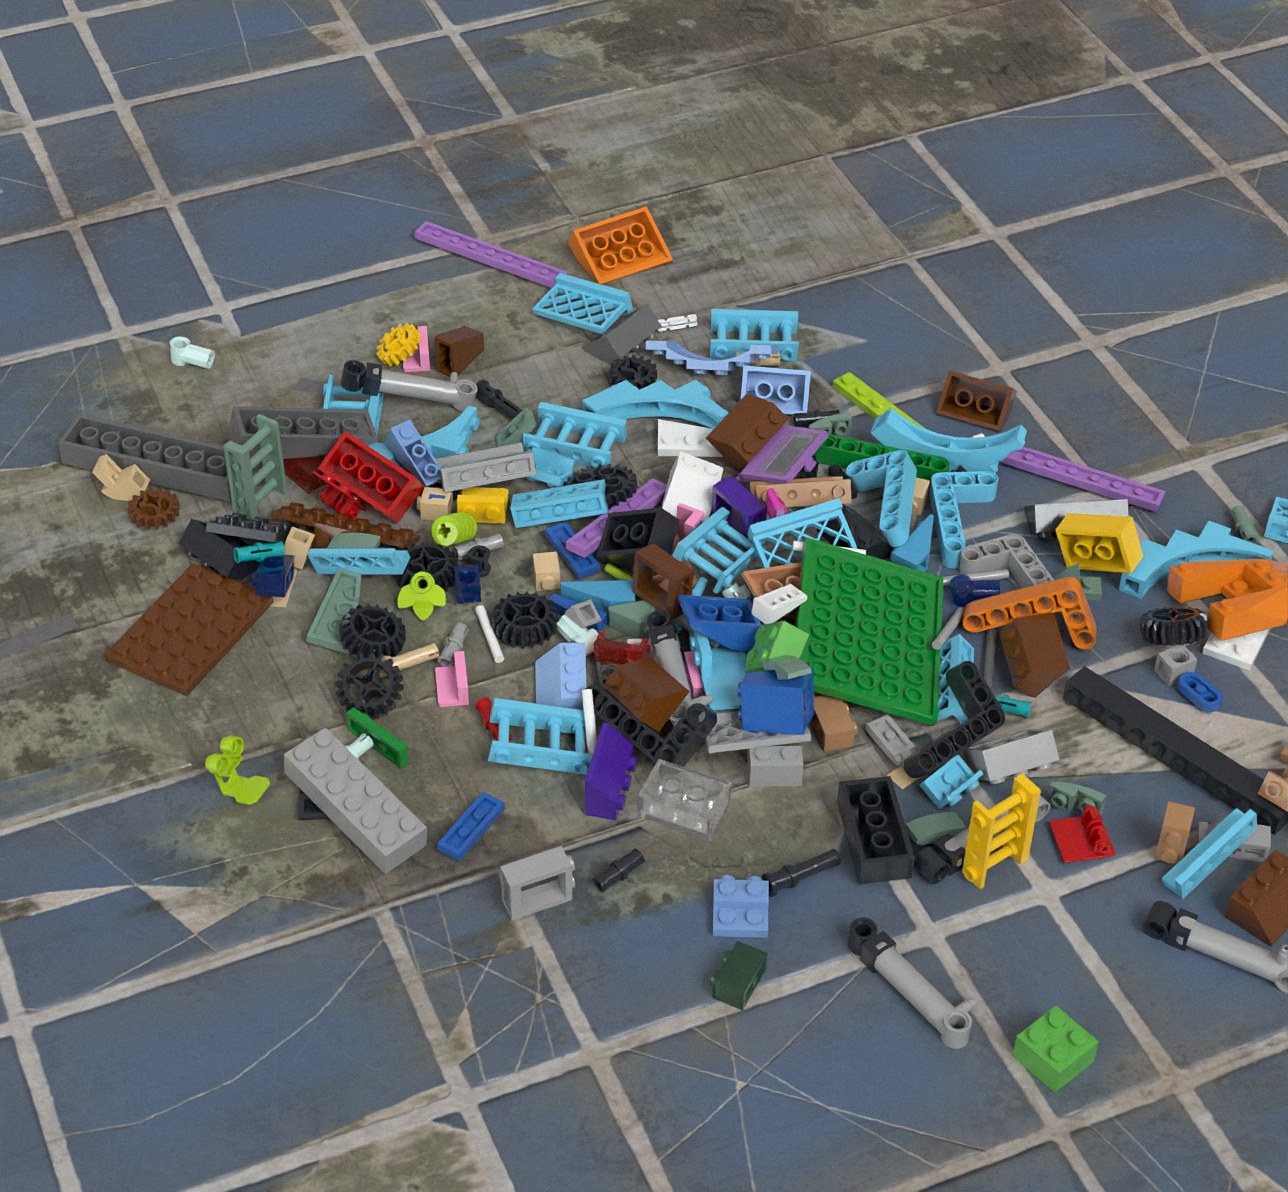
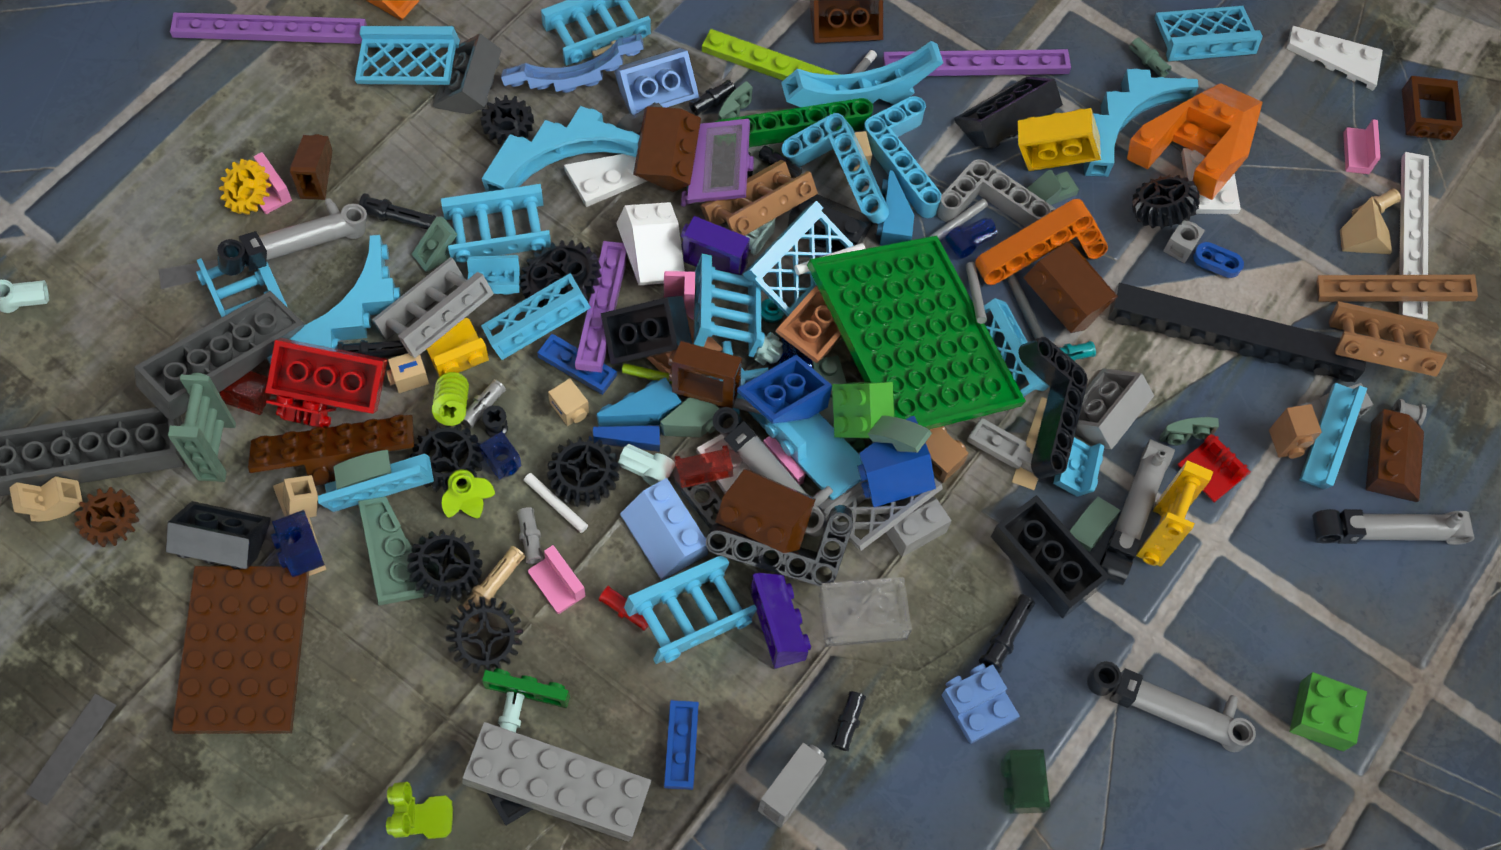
camera: 35 degrees left, 20 degrees up
(244, 553) = (269, 529): teal pin -> none
(252, 528) = (238, 499): black plate -> none
(413, 453) = (357, 327): medium blue slope -> none
(583, 614) = (642, 442): light grey slope -> none
(589, 720) = (729, 573): white bar -> none
(678, 322) = (512, 35): axle -> none
(775, 505) = (761, 238): dark pink slope -> none
(776, 604) = (829, 367): white slope -> none

